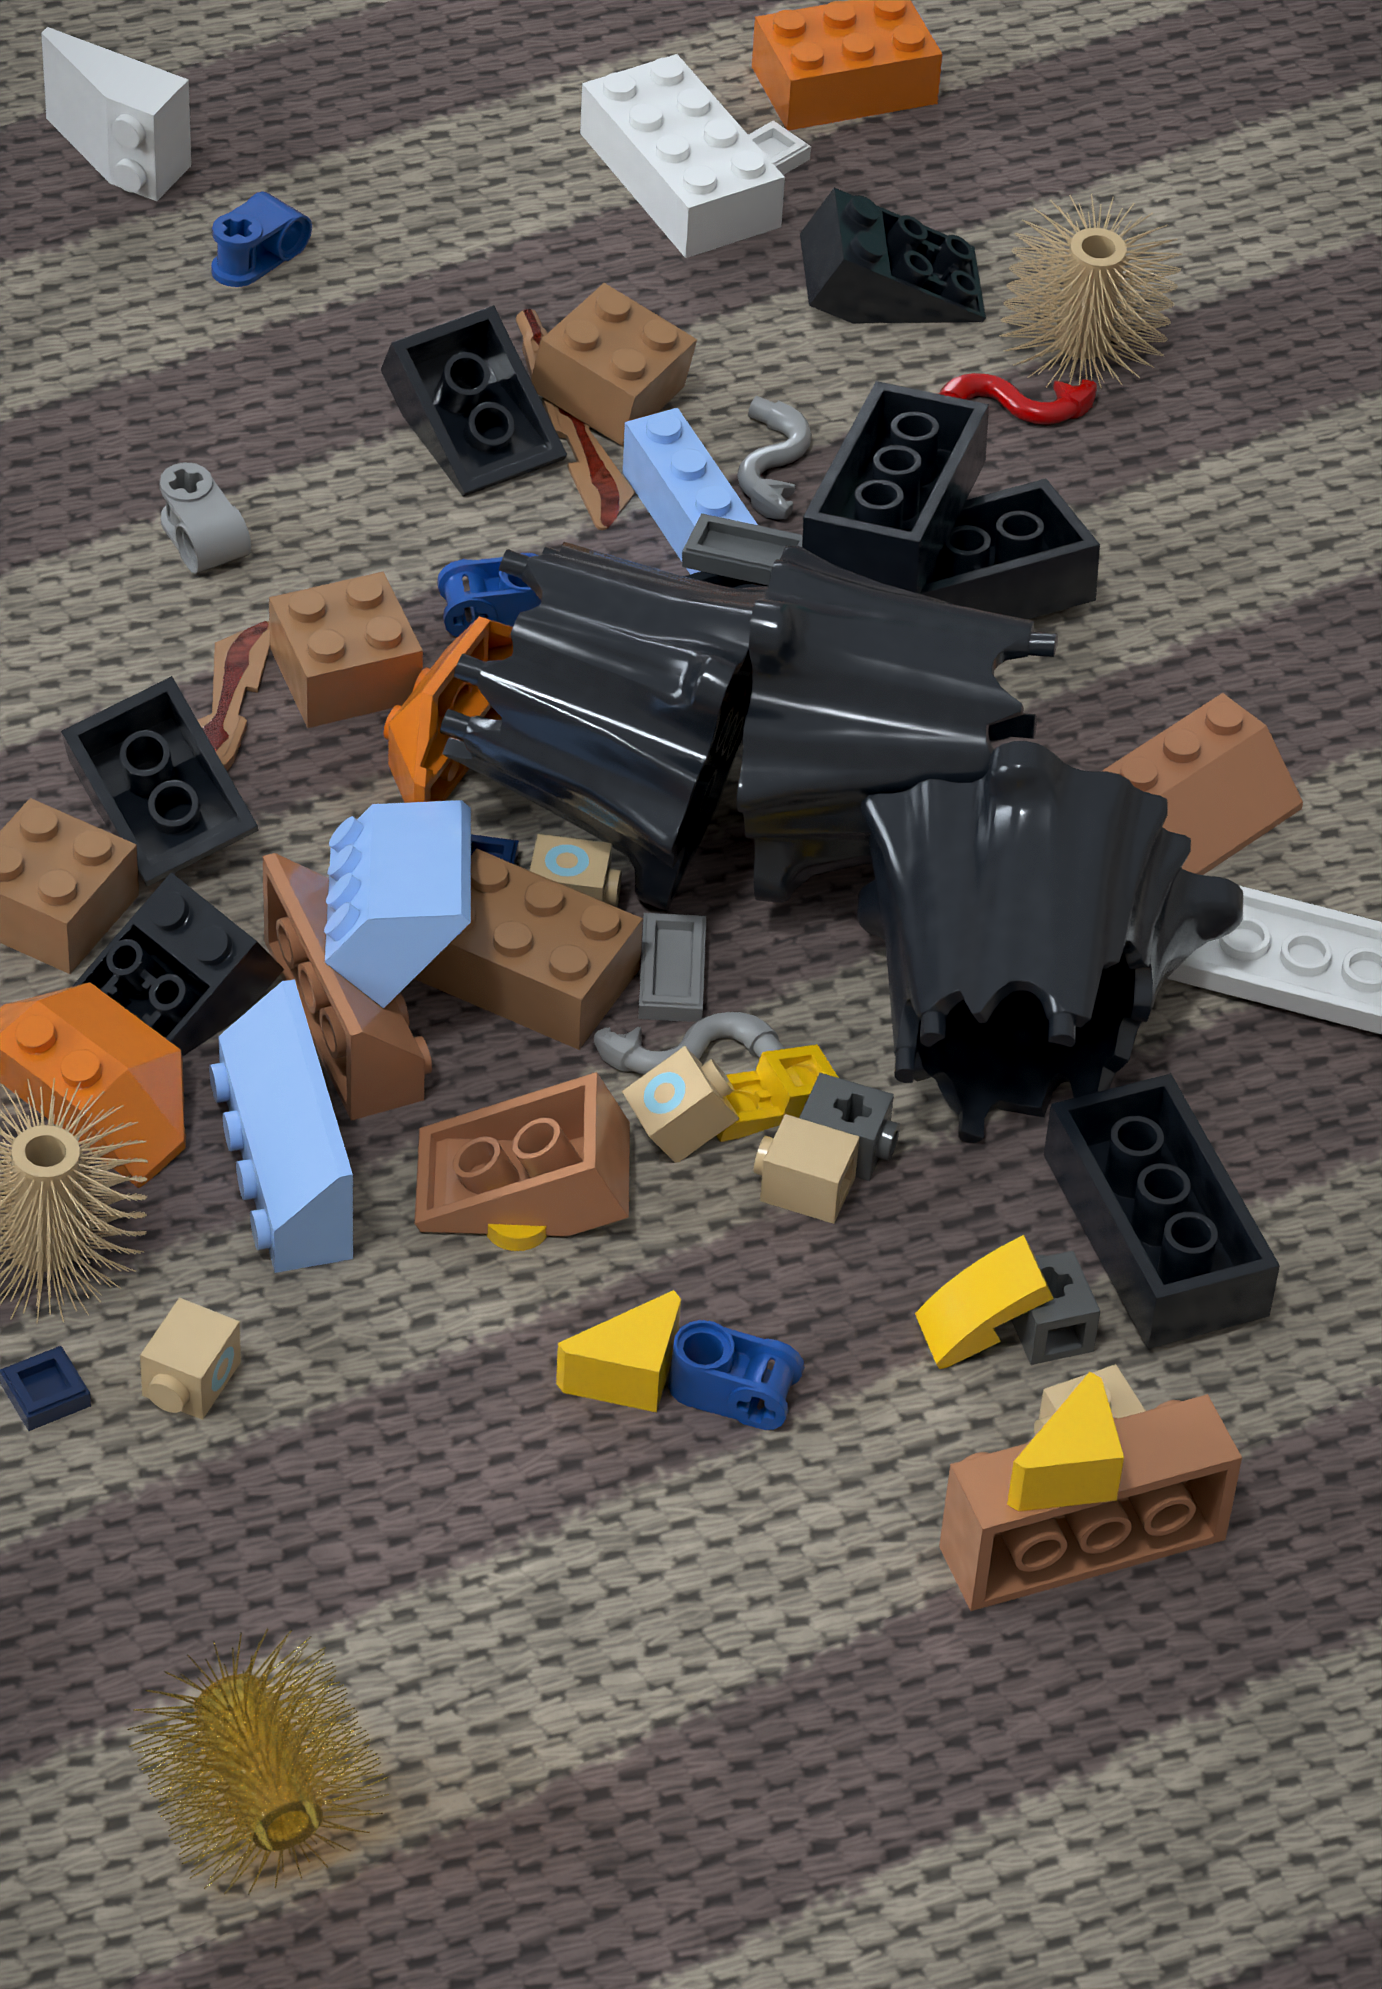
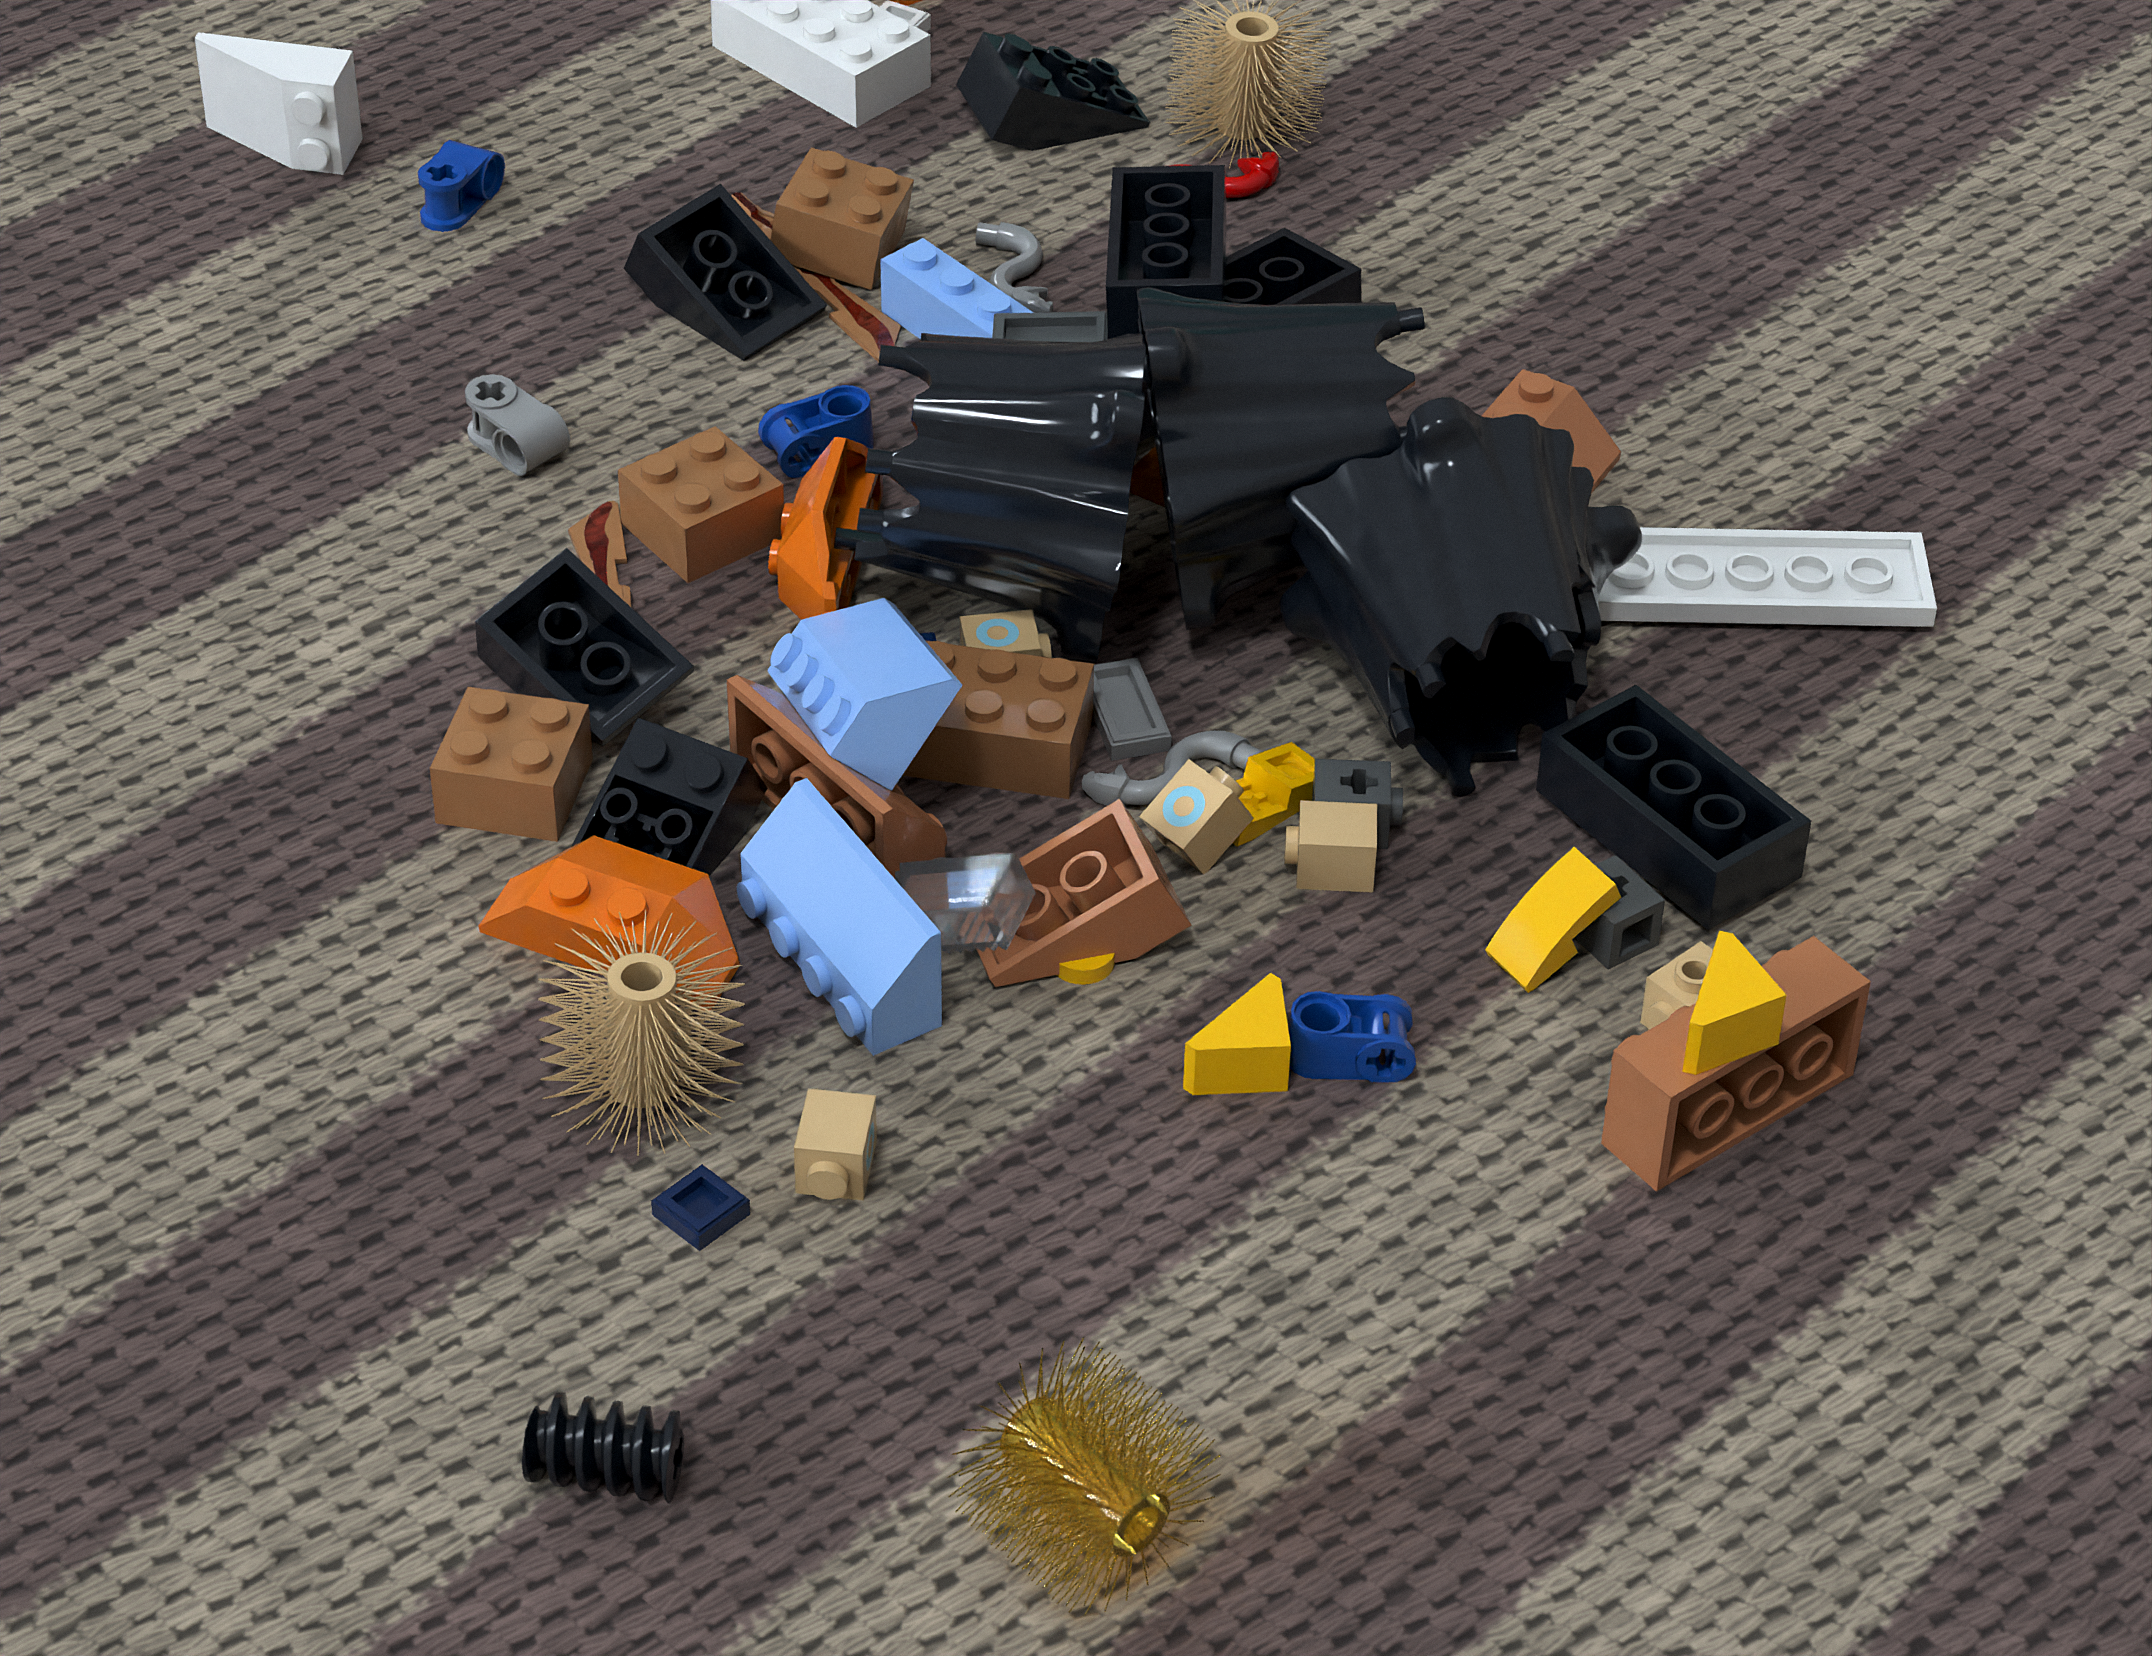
camera: 15 degrees left, 5 degrees down
(409, 1139) = (970, 898): none -> clear brick

